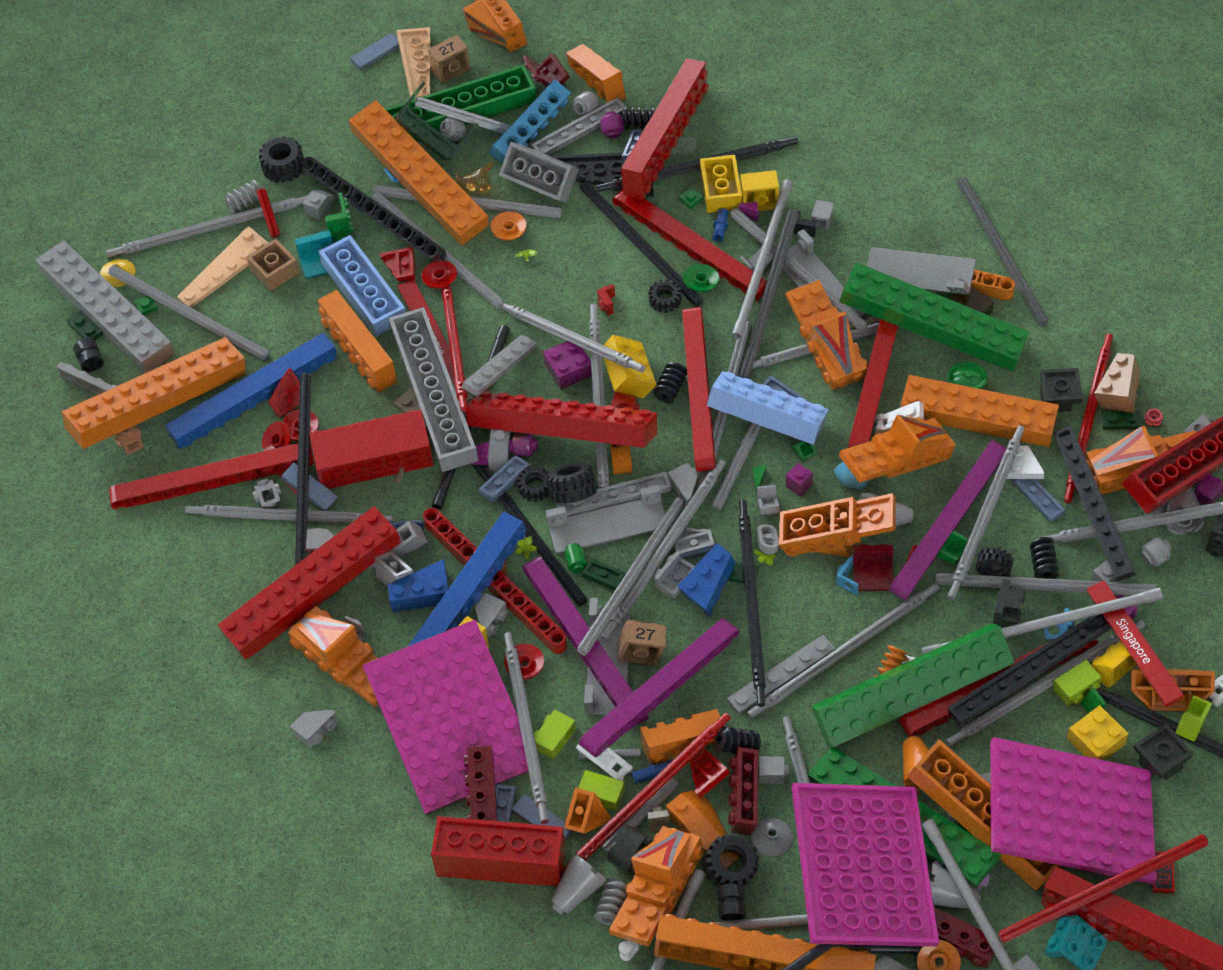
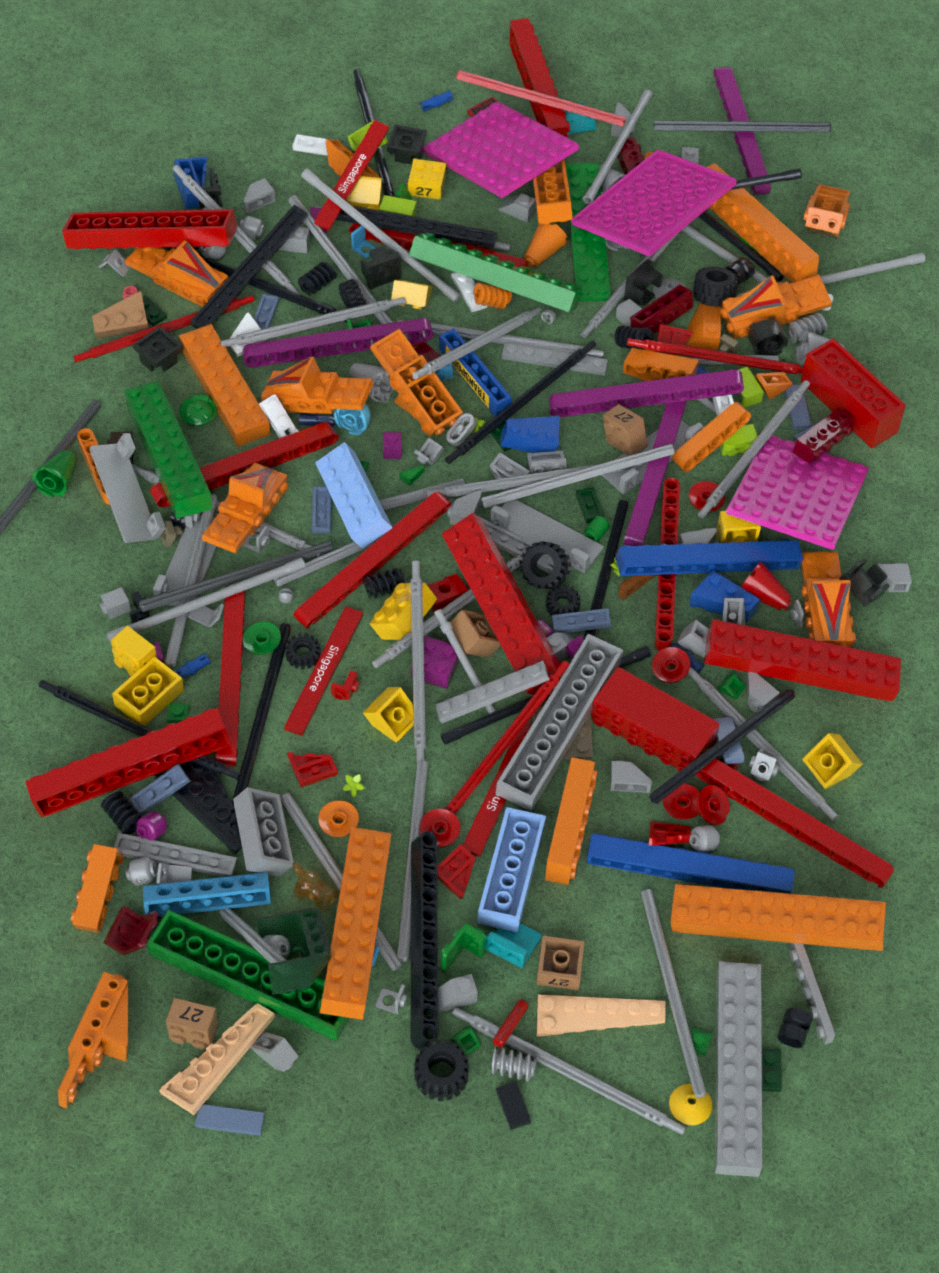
camera: 140 degrees left, 0 degrees up
(221, 184) = (513, 1105): none -> black tile
(222, 544) = (832, 760): none -> yellow slope
(259, 412) = (704, 838): none -> light grey head
(289, 190) = (466, 1040): none -> green slope
(324, 689) = (866, 584): none -> pearl dark grey panel
(349, 172) = (400, 1000): none -> light grey bracket
(353, 407) = (628, 778): none -> light grey slope
(389, 92) = (275, 1051): none -> light grey slope
(397, 622) = (767, 588): none -> red cone
(407, 506) = (671, 657): none -> red dish
(557, 306) = (391, 713): none -> yellow slope
(561, 388) = (475, 634): none -> medium nougat brick
(565, 239) = (312, 767): none -> red wing
(568, 118) = (173, 873): none -> light grey bracket
(569, 702) = (711, 436): none -> orange beam
(575, 368) = (447, 629): none -> light grey bar
(638, 302) = (323, 671): none -> red tile
(730, 321) = (285, 595): none -> light grey hinge
(784, 801) = (638, 282): none -> pearl dark grey panel
(789, 334) = (262, 540): none -> light grey bracket
(817, 591) = (476, 374): none -> blue brick
(839, 596) = (476, 343): none -> light grey axle
(960, 616) = (413, 292): none -> yellow slope
(985, 248) = (55, 474): none -> green cone
(1056, 525) = (275, 290): none -> black axle
(1198, 586) = (258, 196): none -> light grey slope
(1211, 833) = (436, 101): none -> blue pin

